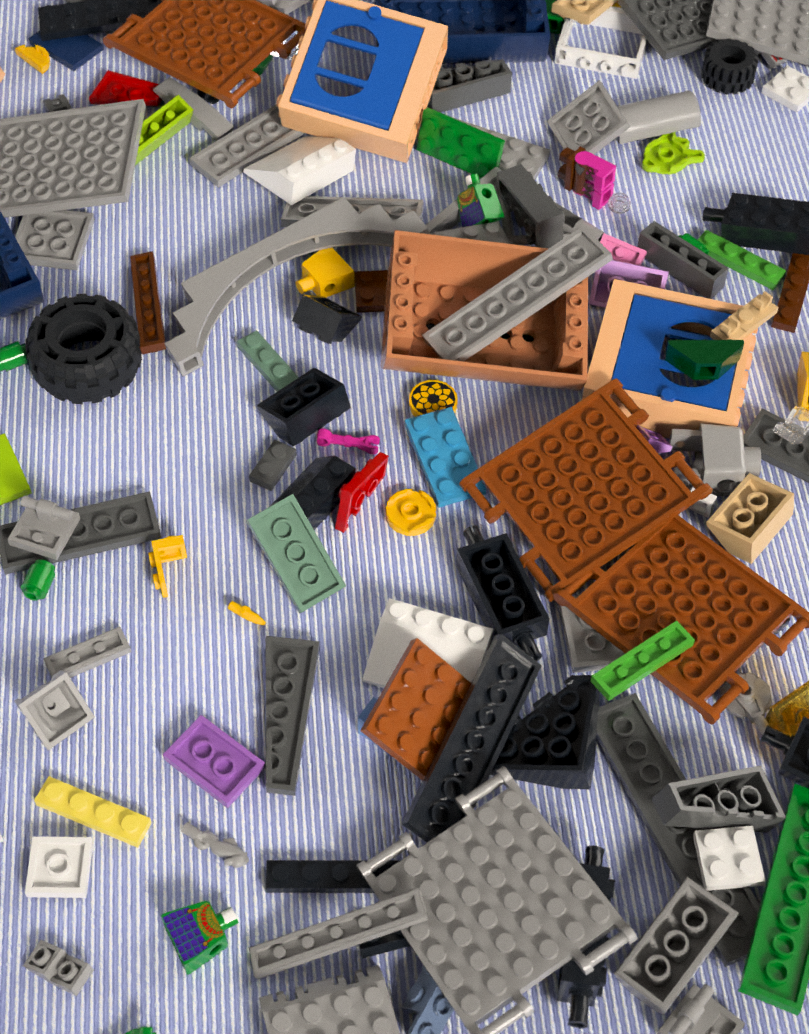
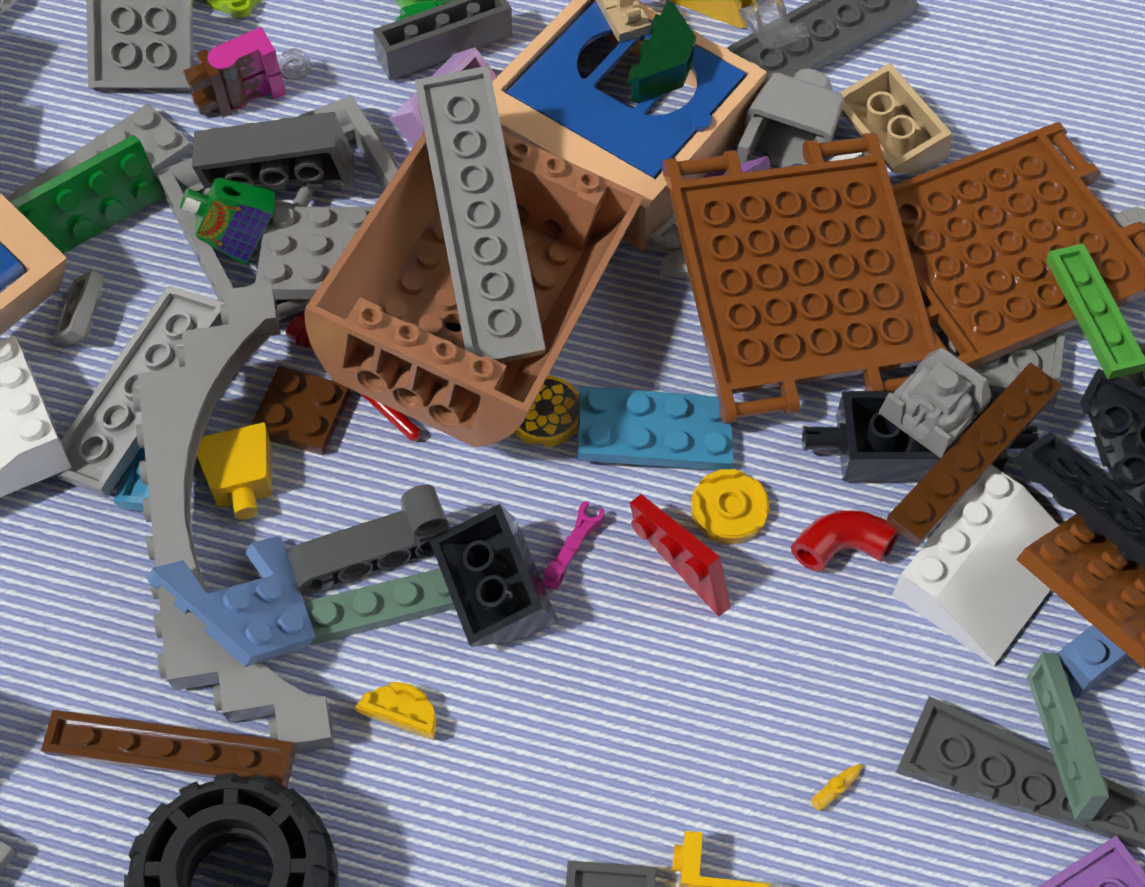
camera: 70 degrees left, 5 degrees up
(212, 395) = (401, 707): none -> yellow plate
(231, 306) = (251, 618): none -> medium blue wing
(272, 465) = (574, 663): dark grey plate -> none
(296, 553) = (781, 673): sand green plate -> none
(302, 346) = (371, 545): none -> dark grey beam
(309, 717) = (1067, 737): none -> sand green plate
(319, 487) = (667, 637): black slope -> none
(325, 318) = (329, 494): black slope -> none
(402, 173) = (76, 315): none -> light grey plate
(416, 570) = (843, 531): none -> red cylinder
(492, 613) = (973, 454): none -> reddish brown plate
(516, 581) = (938, 401): none -> light grey brick
(623, 251) = (388, 94): bright pink plate -> none

